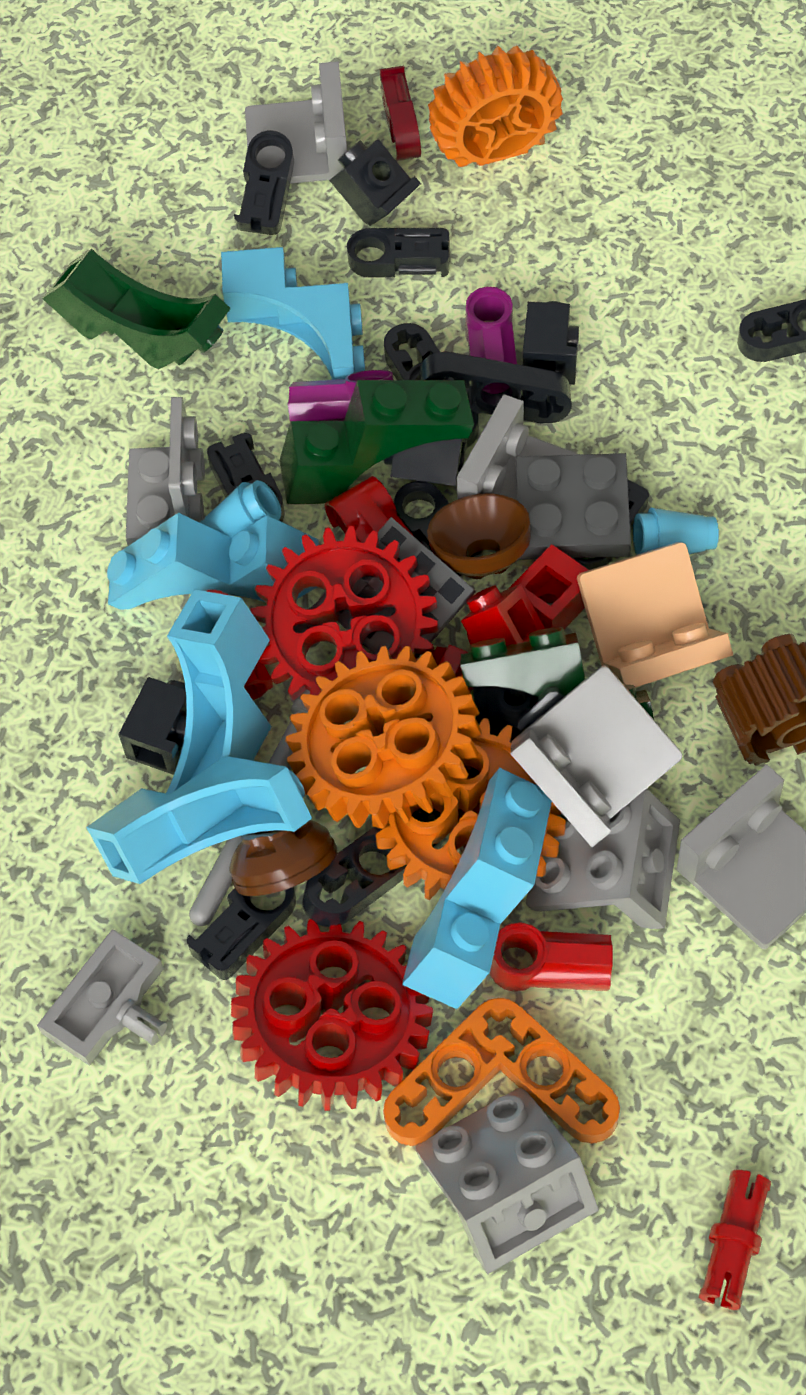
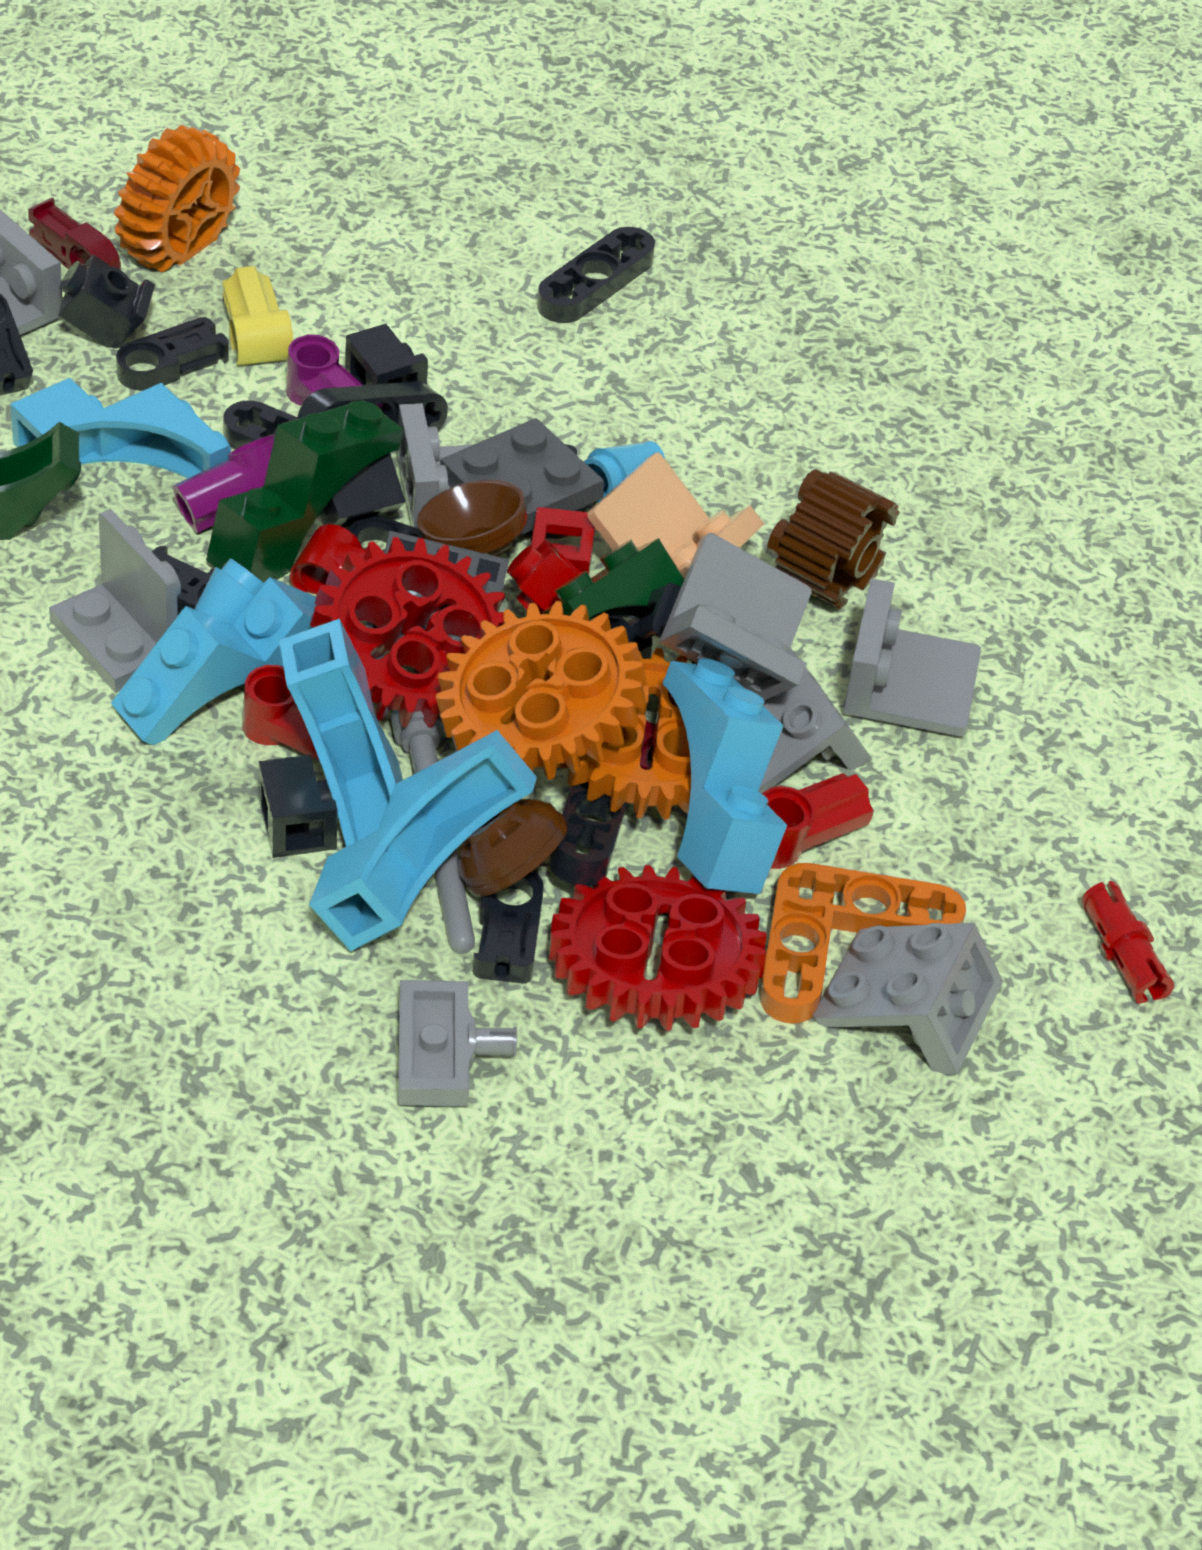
camera: 45 degrees left, 15 degrees down
(485, 252) = (255, 322): none -> light yellow piece

